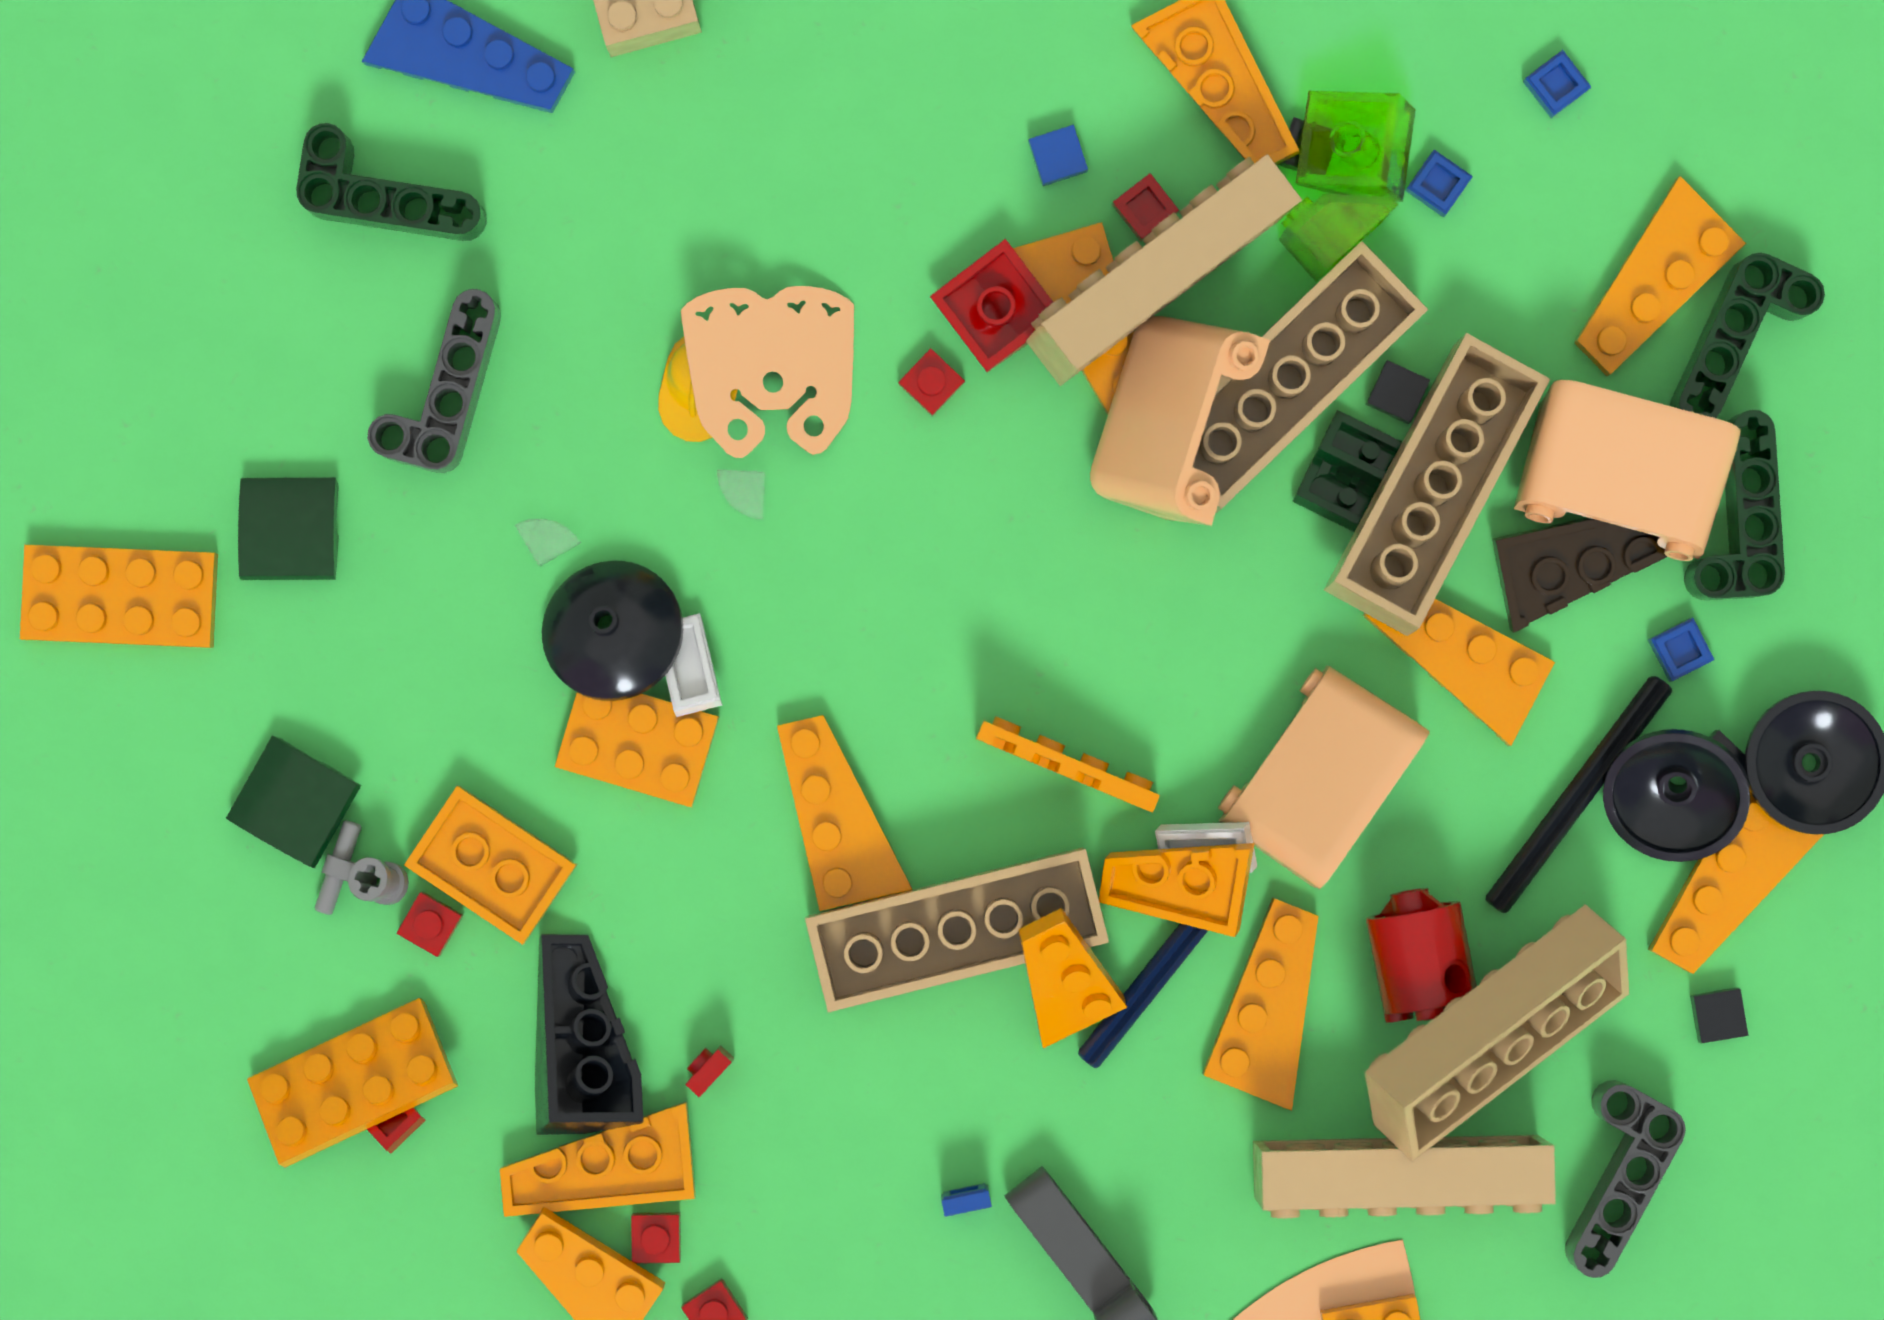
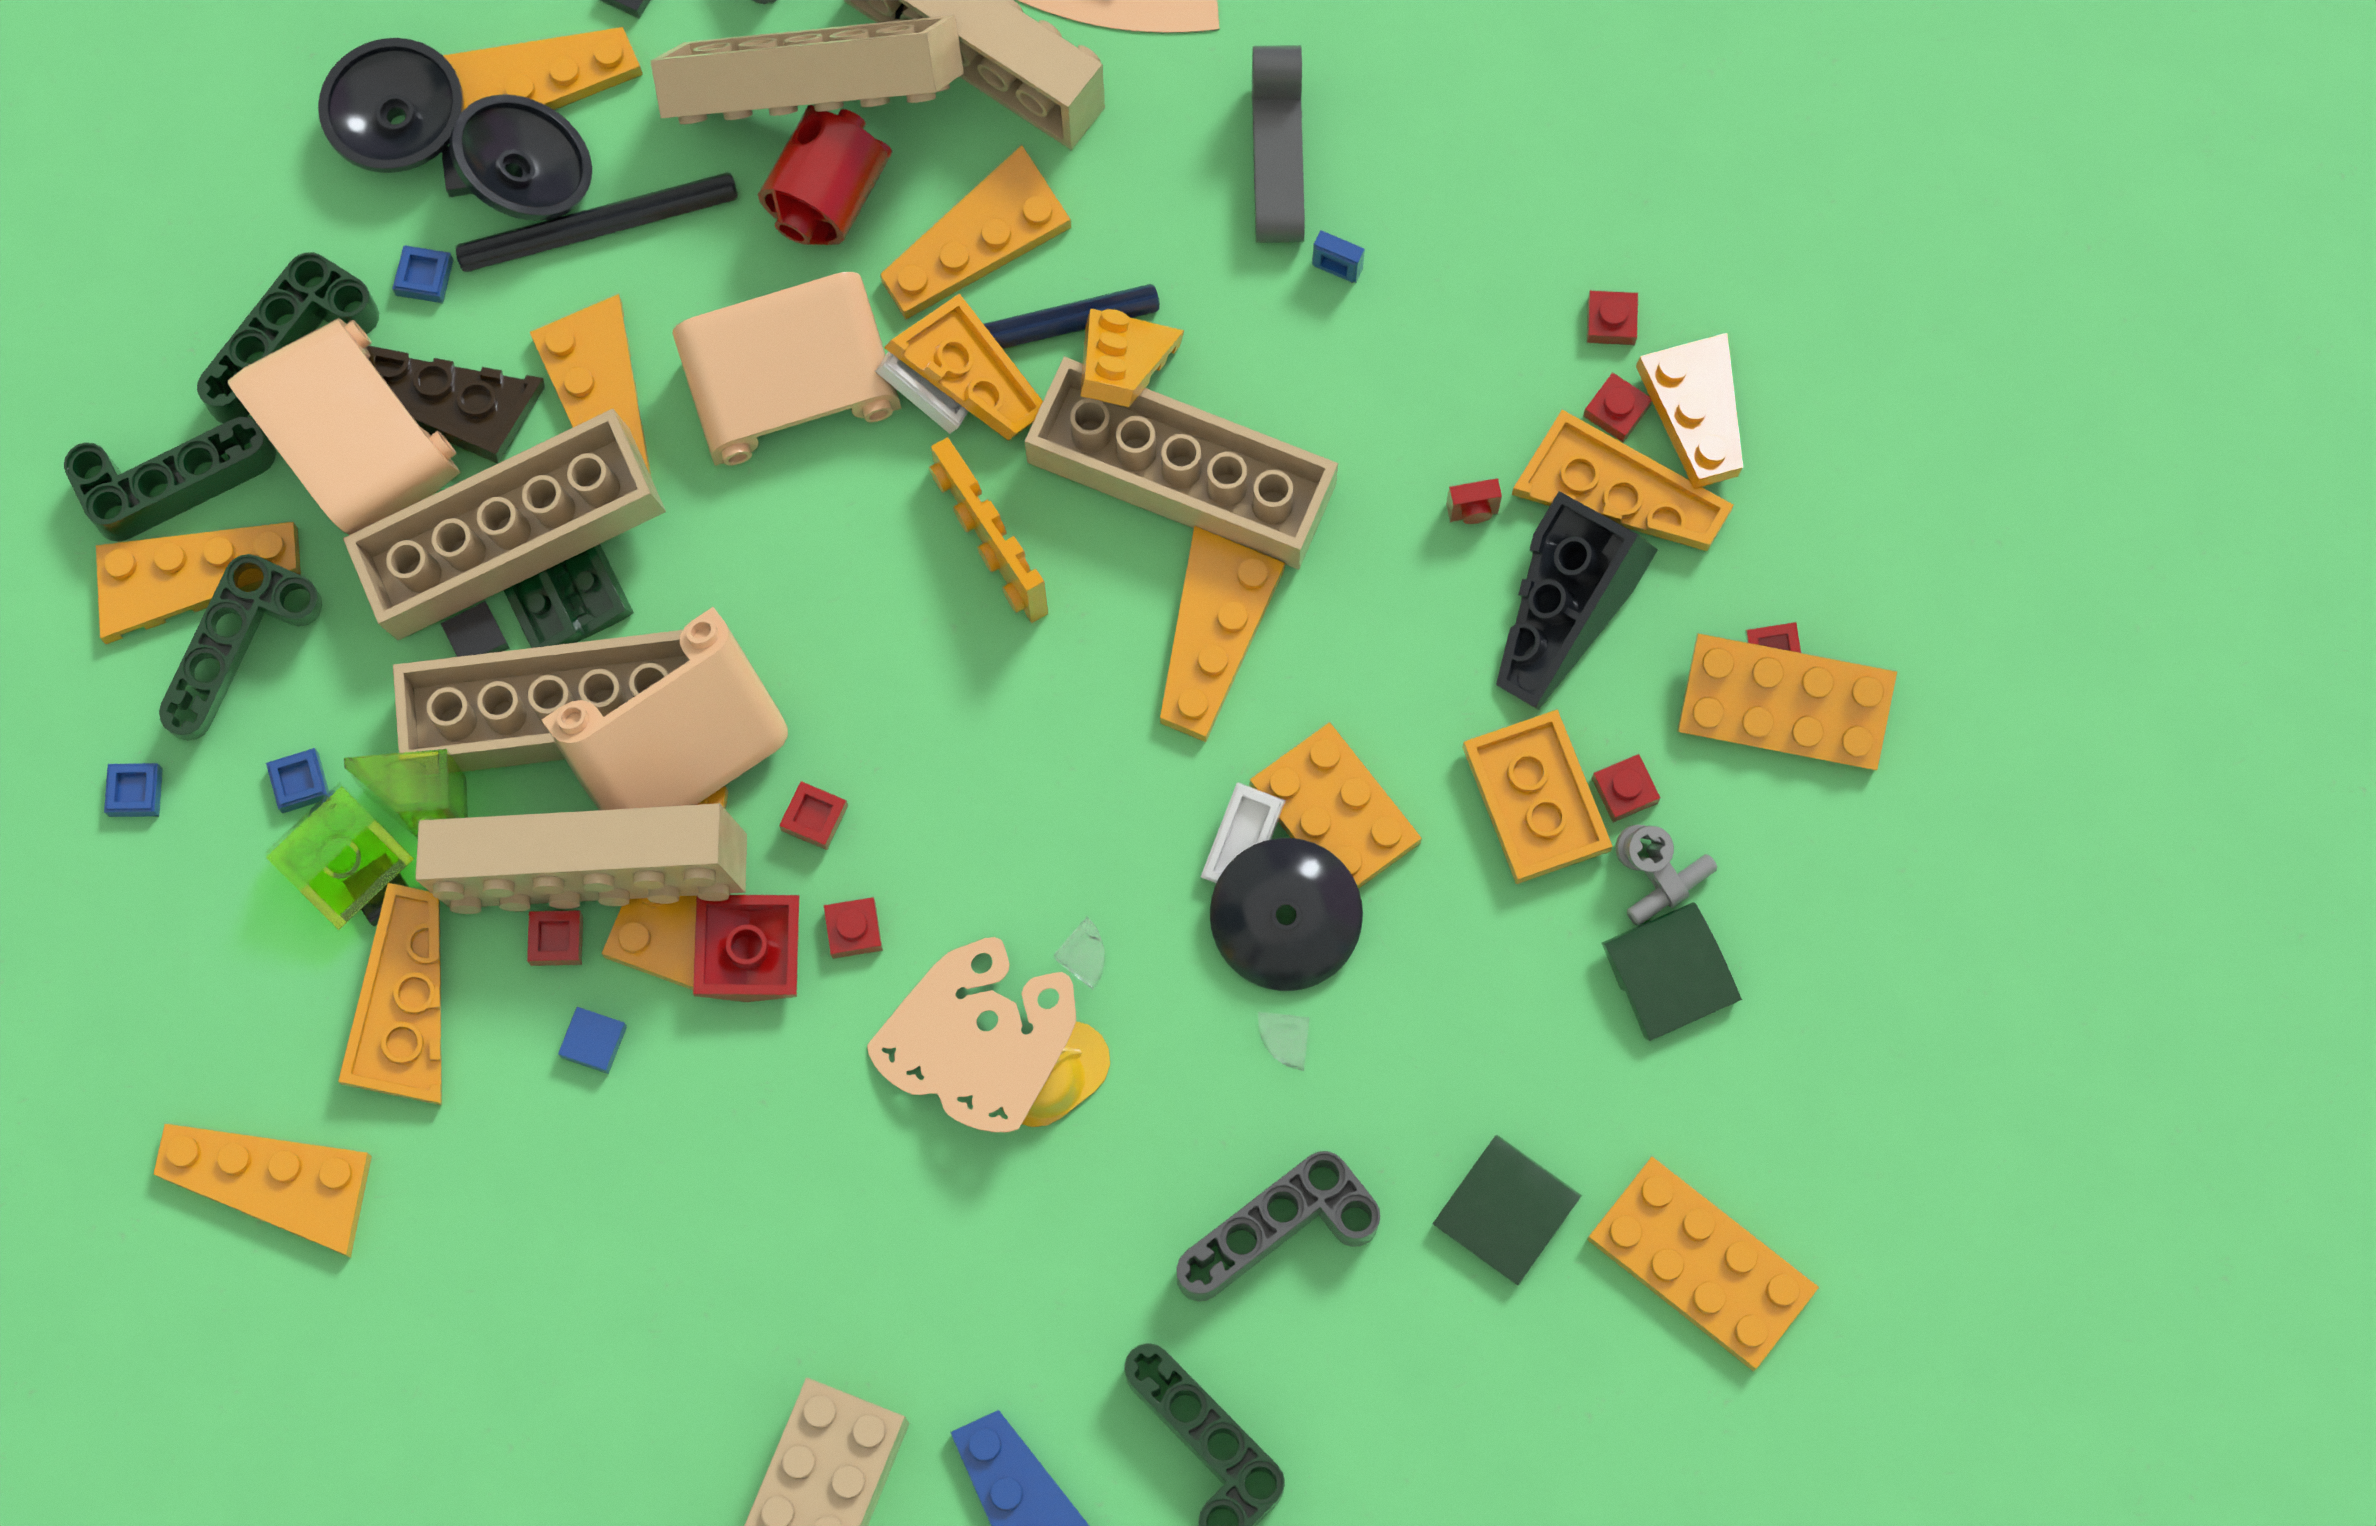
camera: 140 degrees left, 15 degrees down
(1026, 443) = (813, 815): none -> red plate
(1573, 233) = (230, 650): none -> dark green beam

